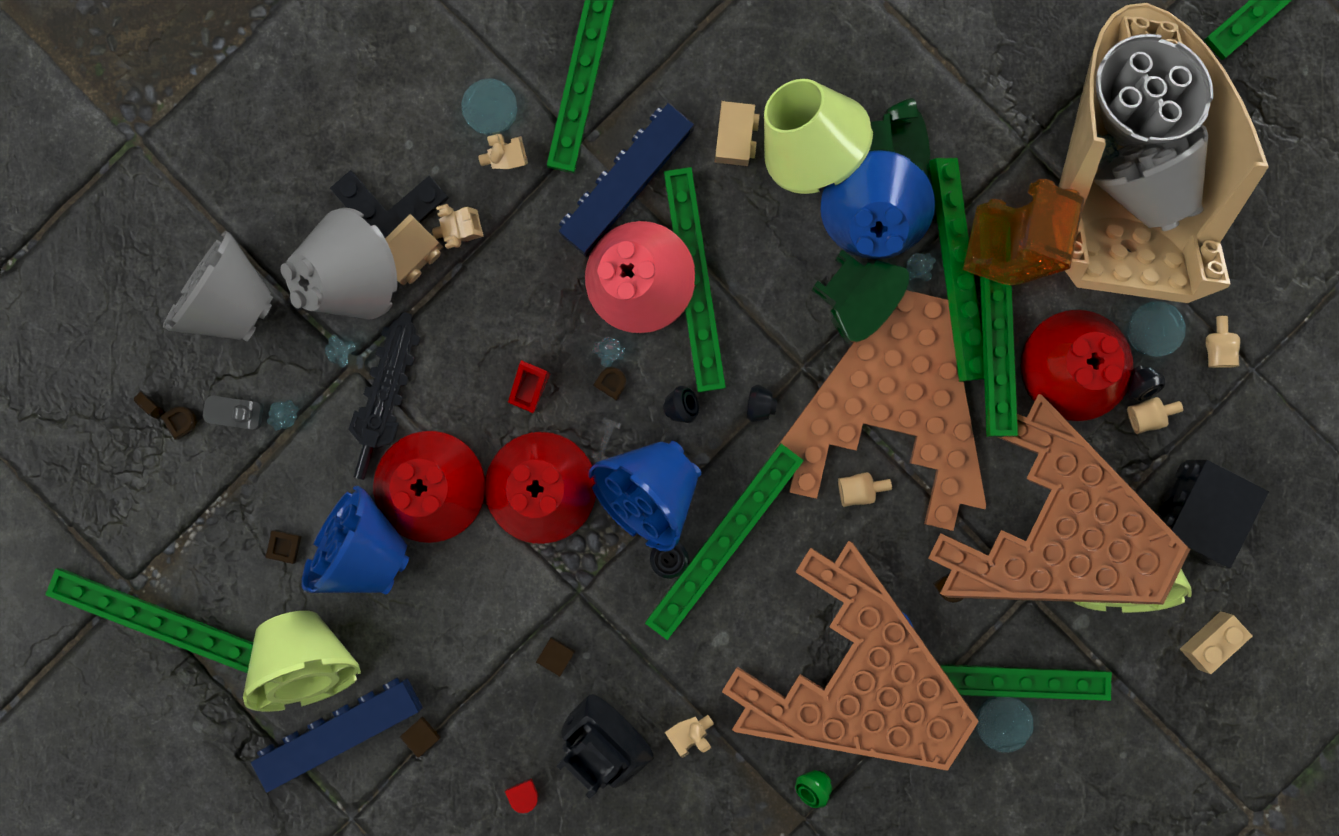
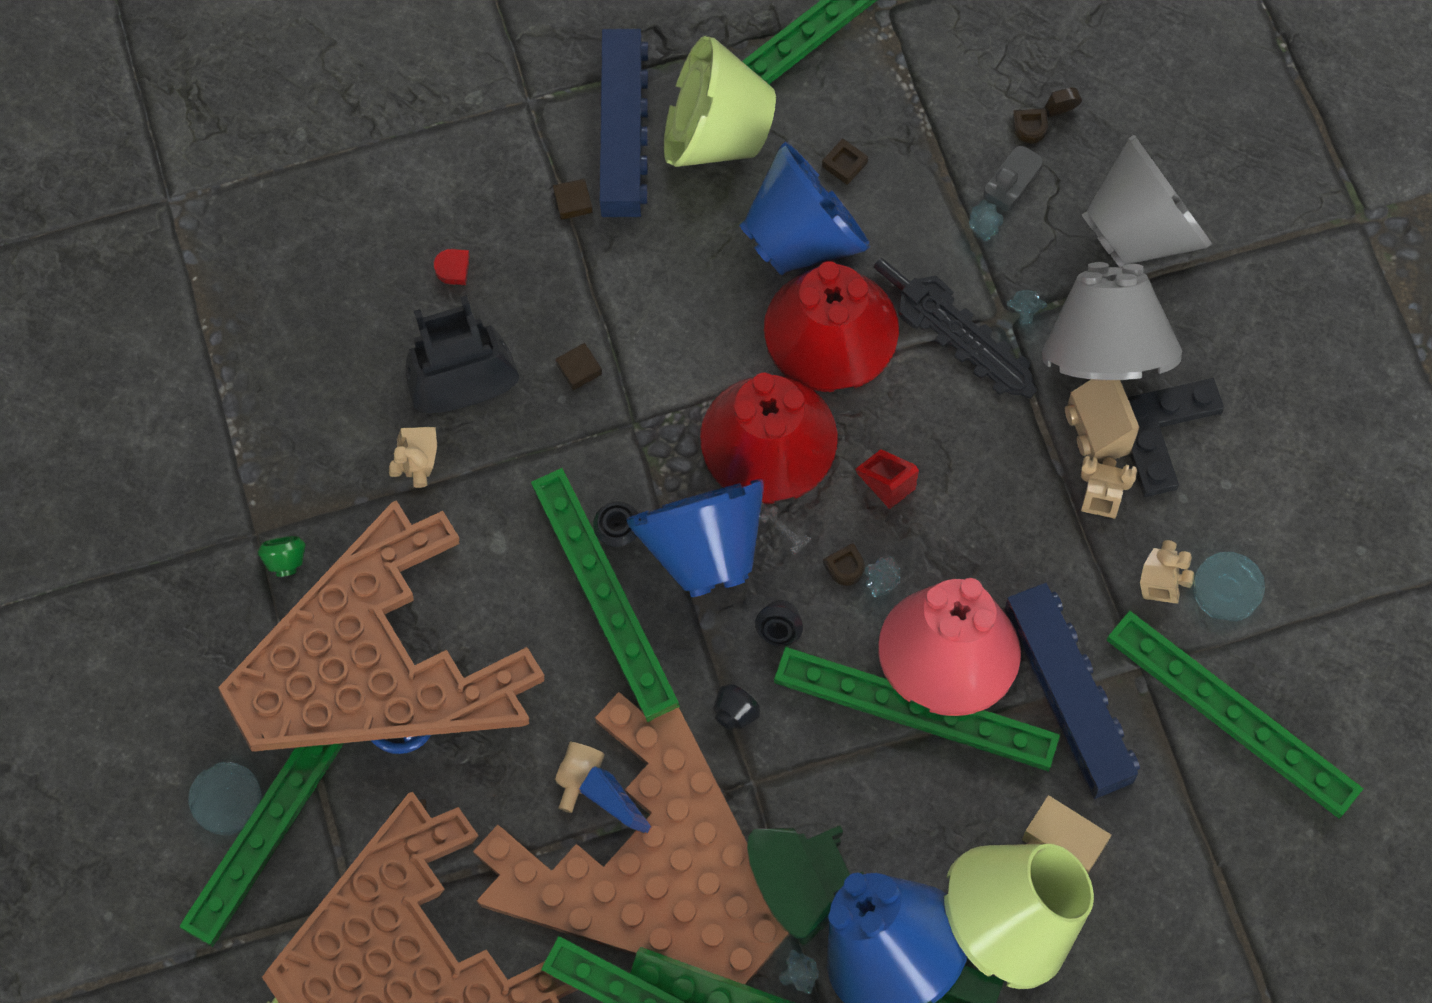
camera: 120 degrees right, 20 degrees down
(871, 453) = (607, 793): none -> blue slope

